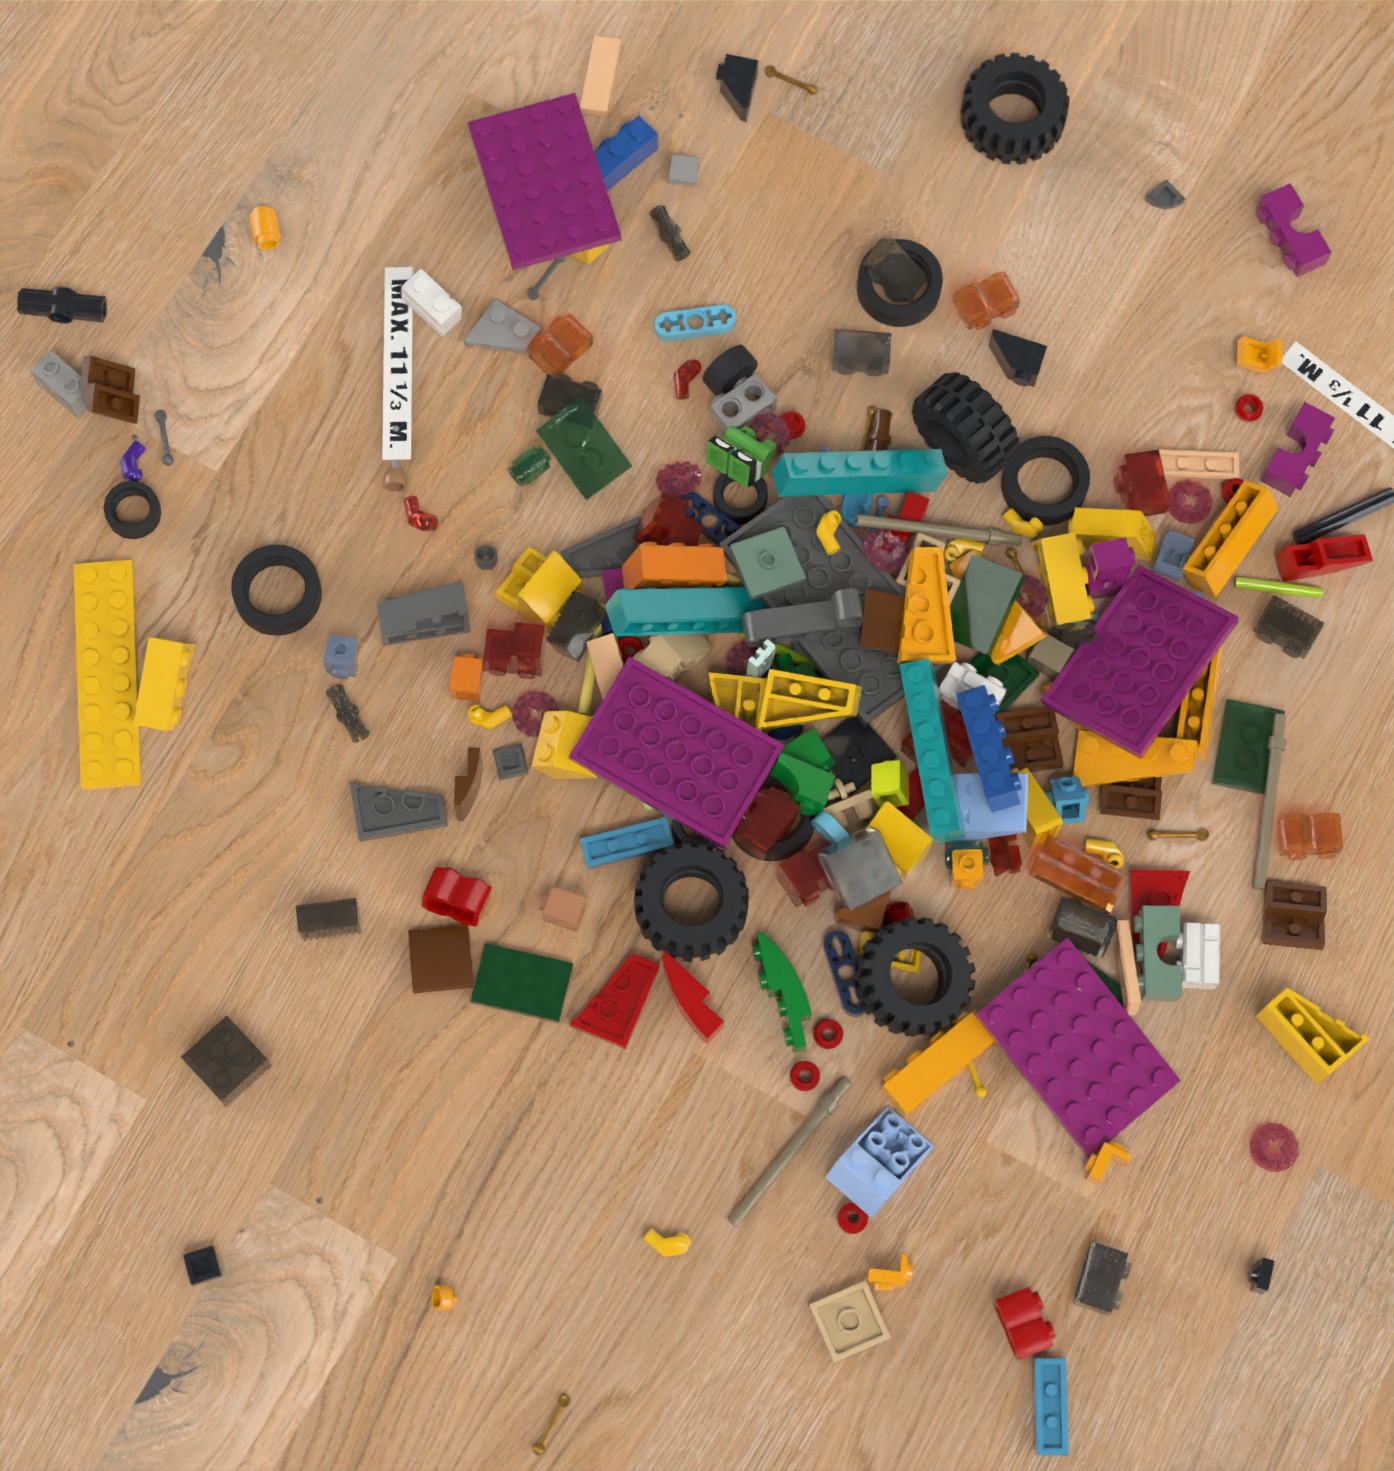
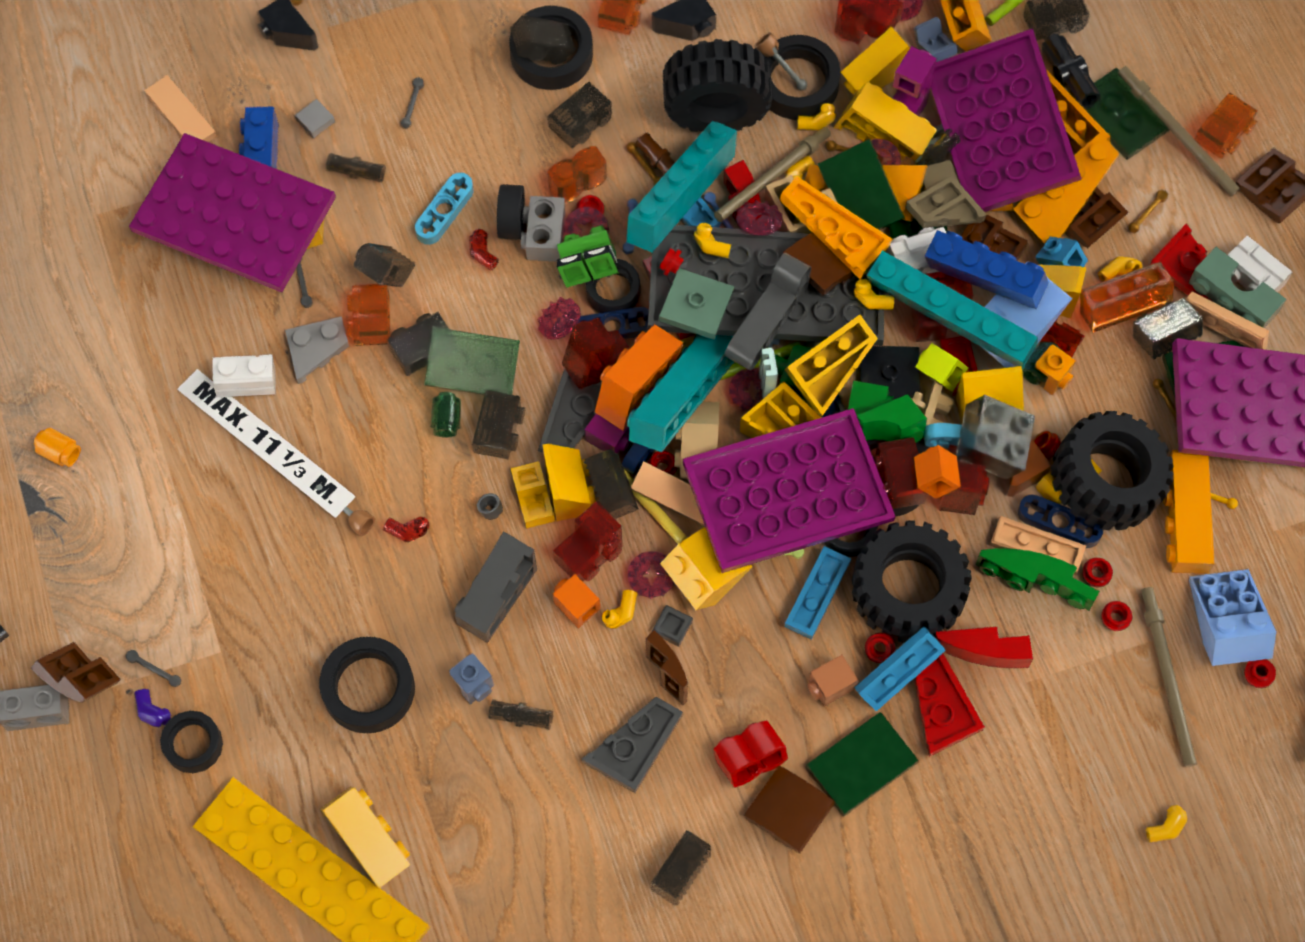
camera: 45 degrees left, 5 degrees down
(554, 508) = (498, 424): none -> clear smoke brick
(603, 320) = (383, 264): none -> clear smoke brick
(614, 948) = (899, 668): none -> dark azure plate
(615, 923) = (873, 654): none -> red plate
(782, 216) = (418, 84): none -> dark grey hinge
(783, 516) = (671, 262): none -> red plate
(784, 845) = (937, 471): none -> orange brick
(810, 392) = (581, 173): none -> clear orange brick
(812, 972) = (1016, 535): none -> light nougat tile
(890, 685) = (869, 299): none -> yellow arm
(1026, 676) = (945, 206): none -> dark tan wing
(1043, 436) = (769, 47): none -> hinge
(1243, 678) = (1070, 70): none -> black piece

